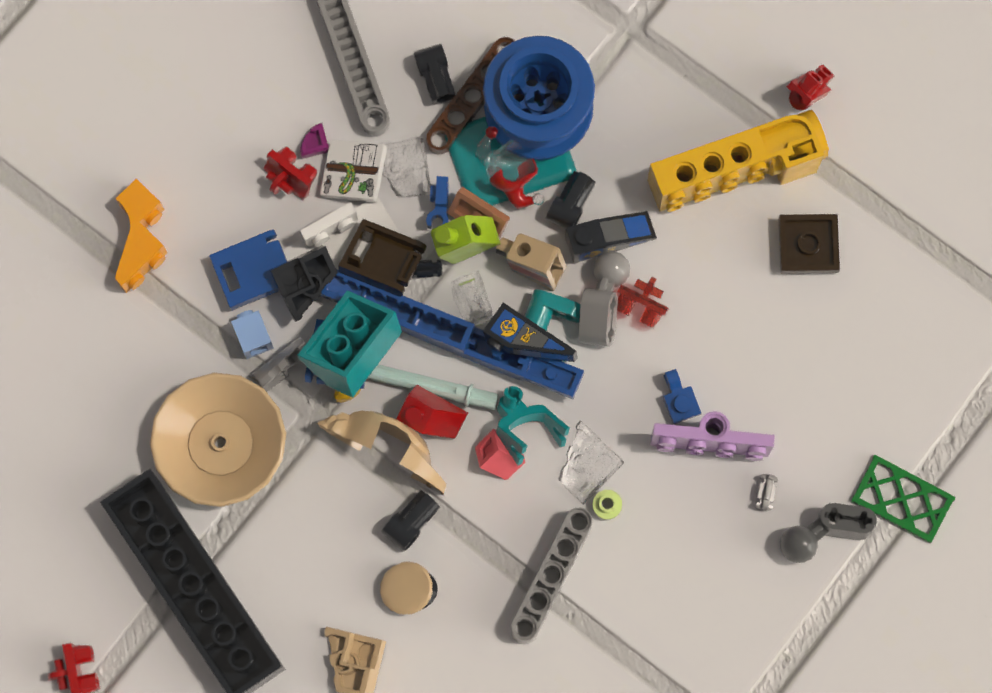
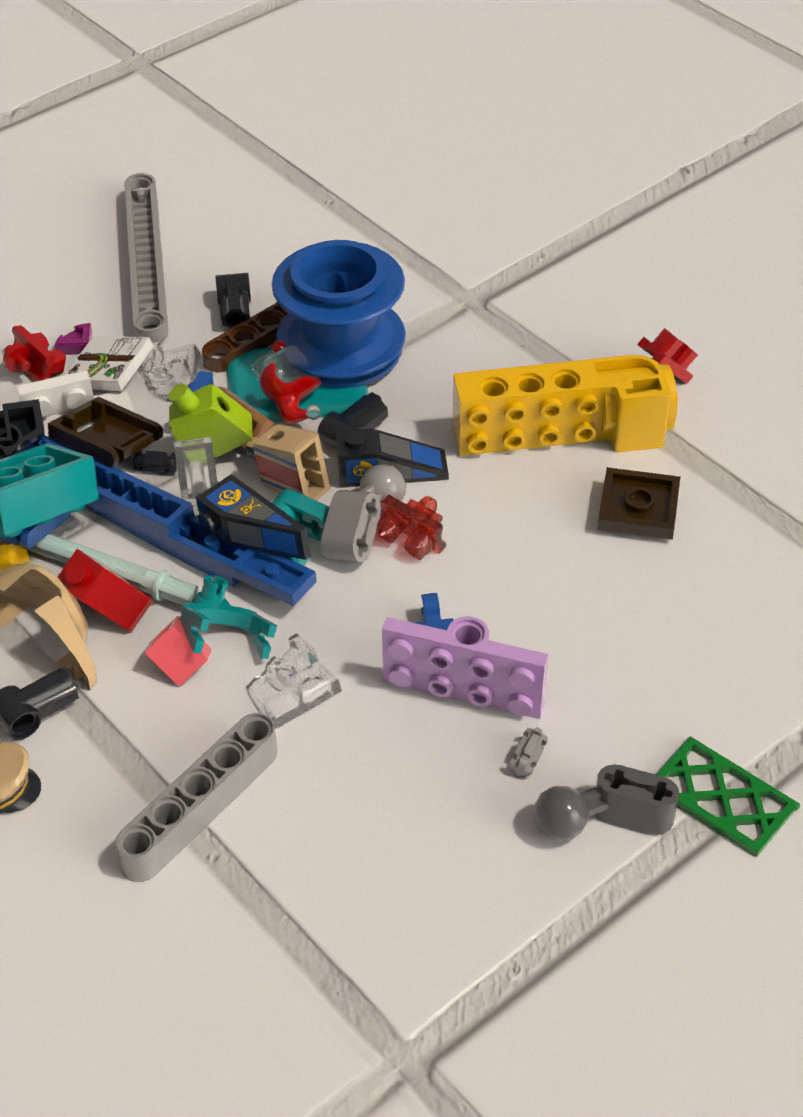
camera: 10 degrees right, 30 degrees down
(603, 513) = (305, 739): yellowish green plate -> none

